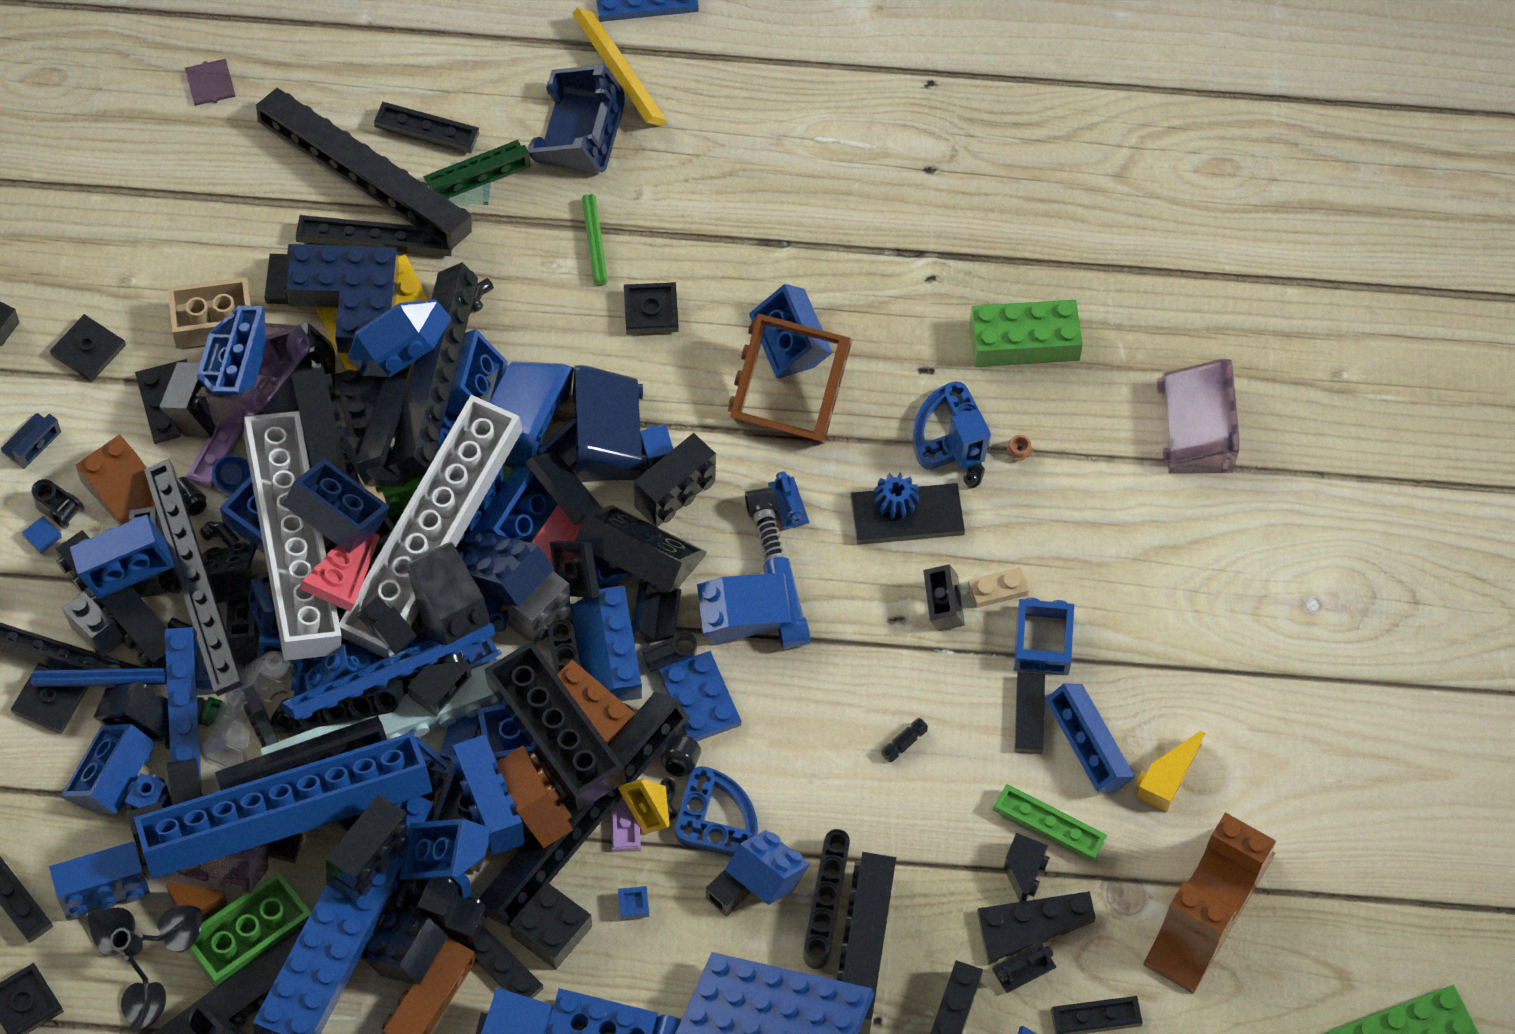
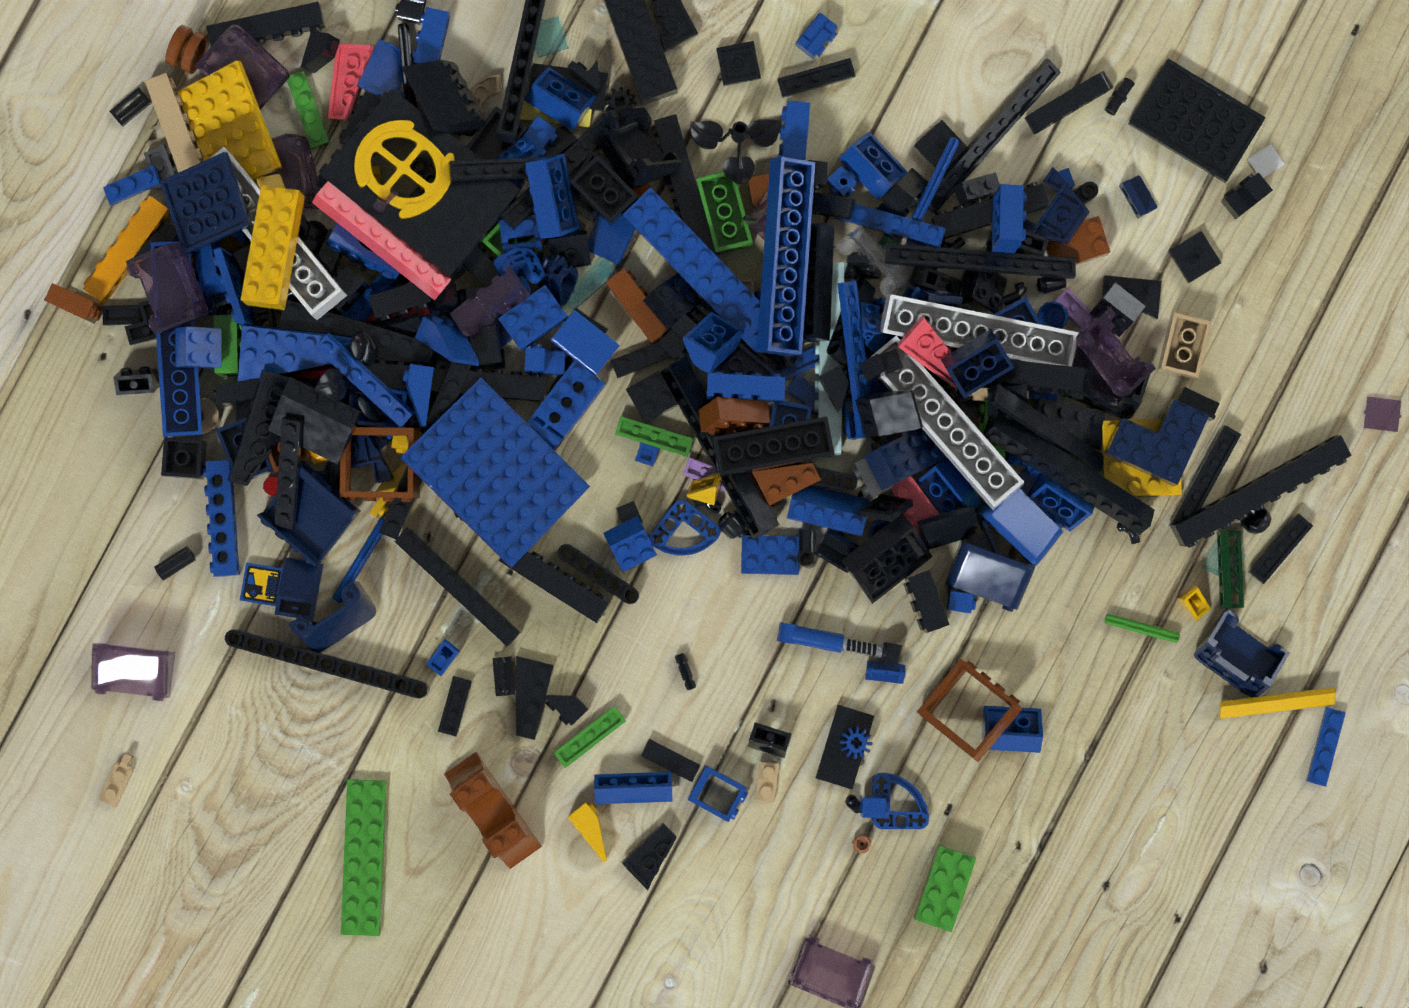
camera: 115 degrees right, 25 degrees up
(85, 505) = (1063, 214): none -> dark blue wing
(234, 352) = (1129, 342): blue wedge -> none
(366, 849) = (730, 295): black piece -> none
(398, 337) = (1099, 459): blue wedge -> none
(405, 157) = (1257, 521): none -> black hair
(534, 196) = (1194, 602): none -> yellow slope
(604, 903) = (654, 436): none -> bright green plate
(651, 308) = (1070, 643): black plate -> none
(743, 606) = (816, 607): blue slope -> none
(1169, 690) = (649, 855): none -> black wing

